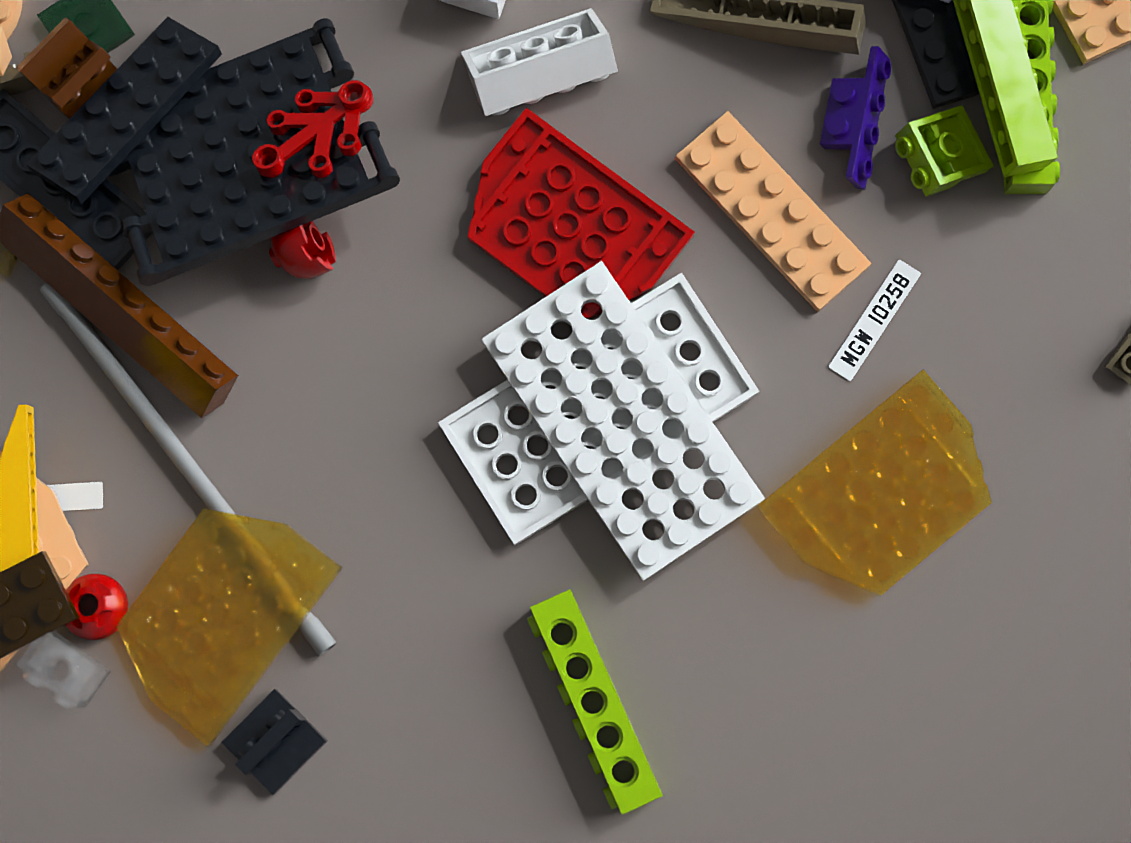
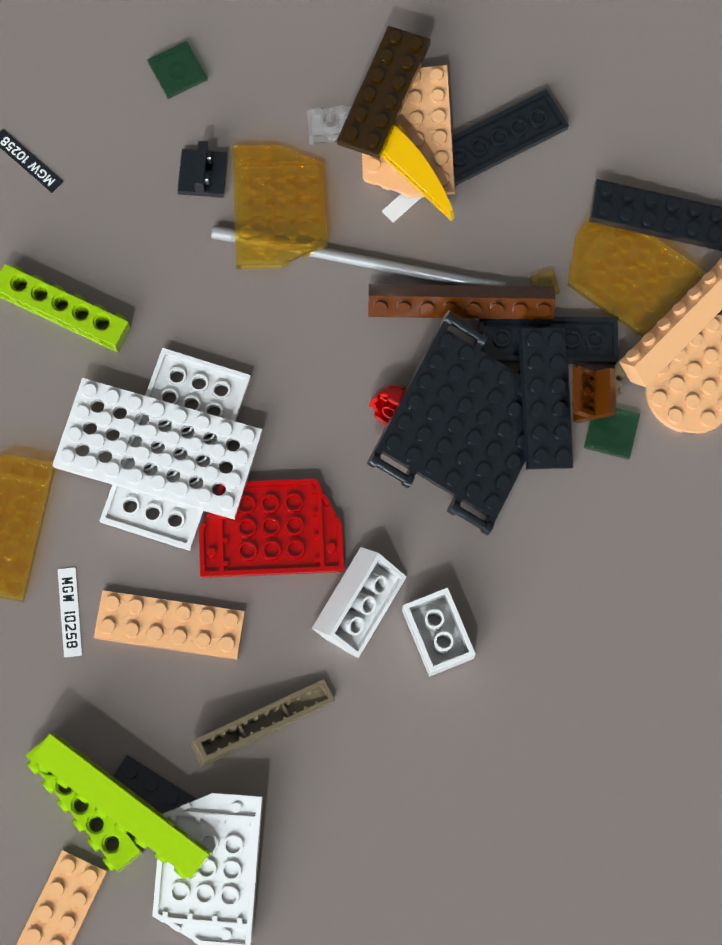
camera: 135 degrees right, 5 degrees down
(111, 606) = (341, 173): red piece -> none
(316, 126) = (432, 458): red plant -> none
(854, 116) = (165, 711): dark purple bracket -> none
(942, 150) = (102, 729): lime plate -> none

